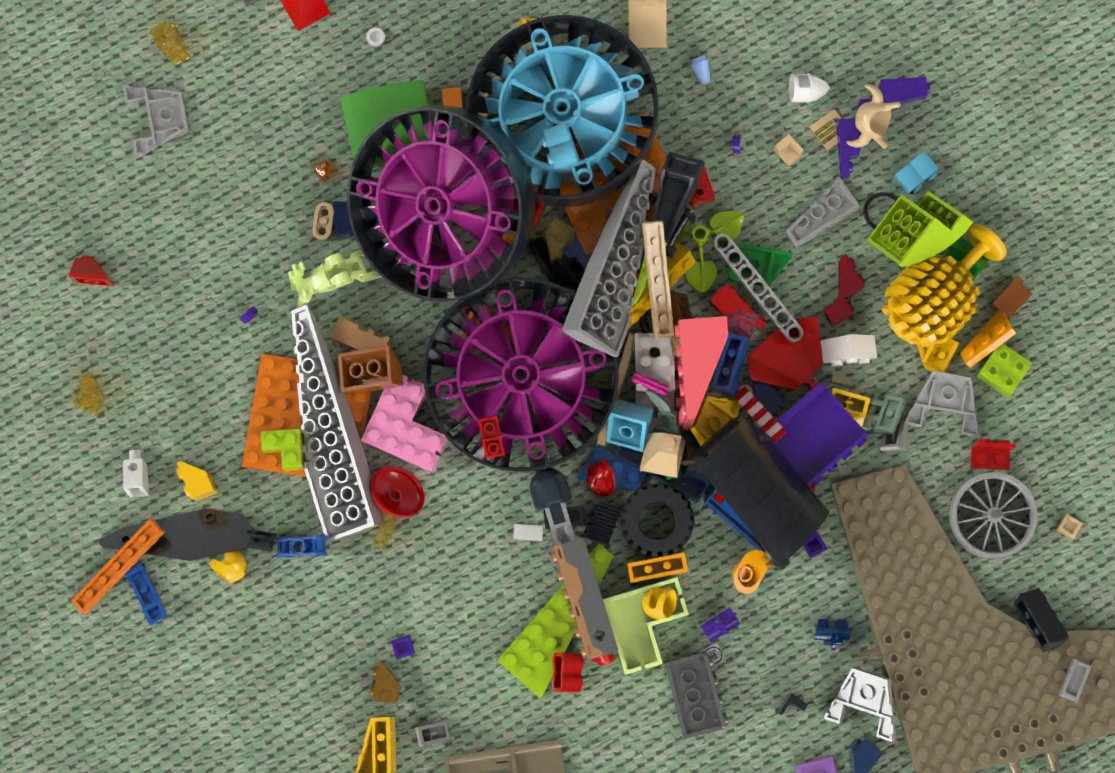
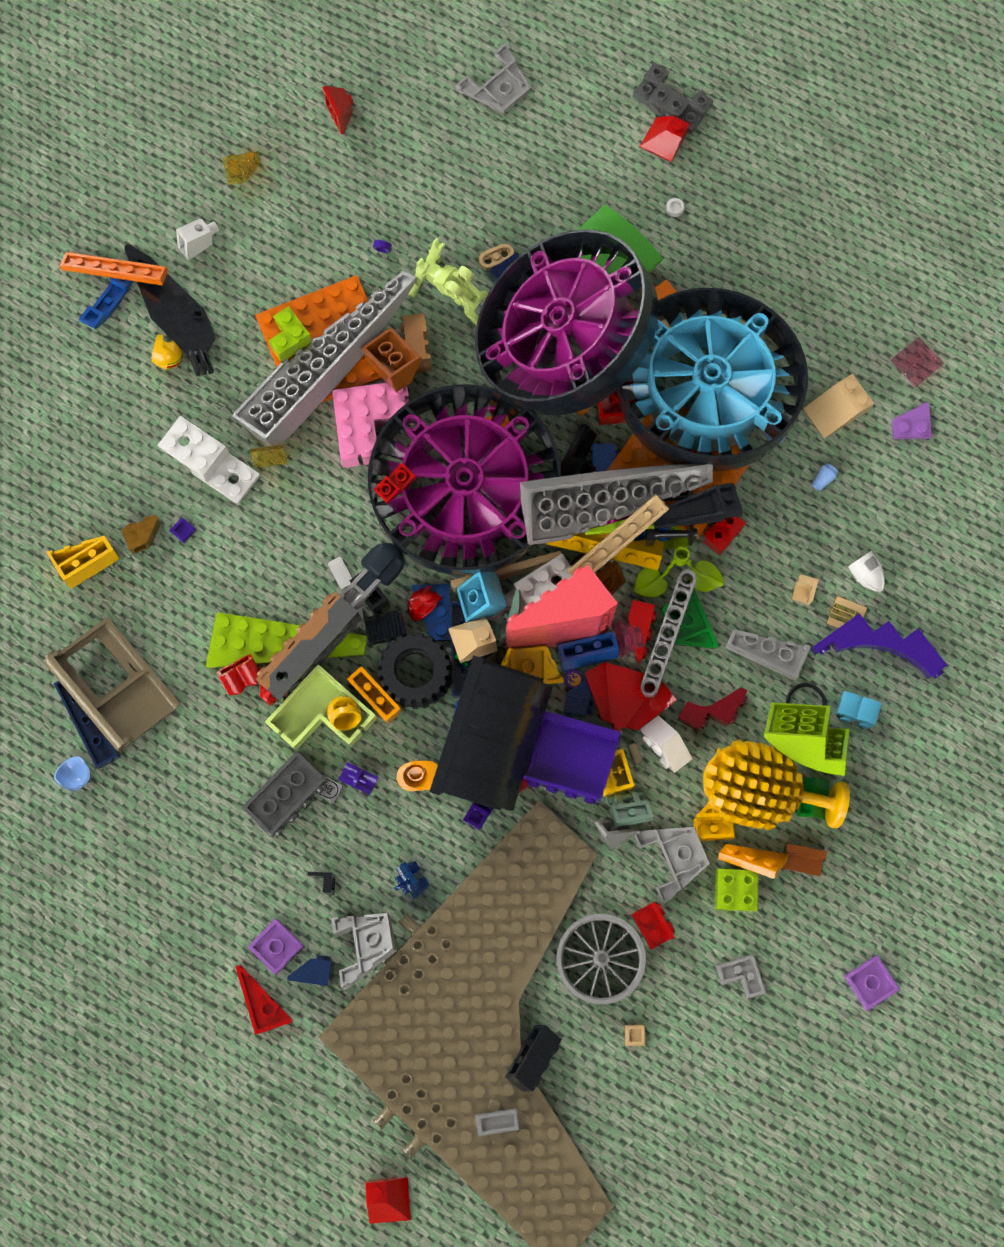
camera: 55 degrees right, 5 degrees down
(170, 42) = (564, 54): clear yellow slope -> none
(198, 482) = (218, 285): yellow slope -> none
(290, 547) = (216, 398): blue piece -> none
(324, 170) = (538, 233): clear orange tile -> none
(355, 586) = (208, 460): none -> white bracket
(397, 492) = (315, 444): red dish -> none
(432, 733) = (122, 595): light grey slope -> none
(557, 237) = (602, 443): clear yellow slope -> none
(559, 145) = (676, 386): medium azure brick -> none
(650, 383) = (525, 585): dark pink axle -> none
(736, 144) = (780, 543): dark purple tile -> none
(760, 414) = (559, 700): sticker -> none
(873, 119) = (878, 640): tan piece -> none
(1072, 403) = (744, 970): none -> light grey tile

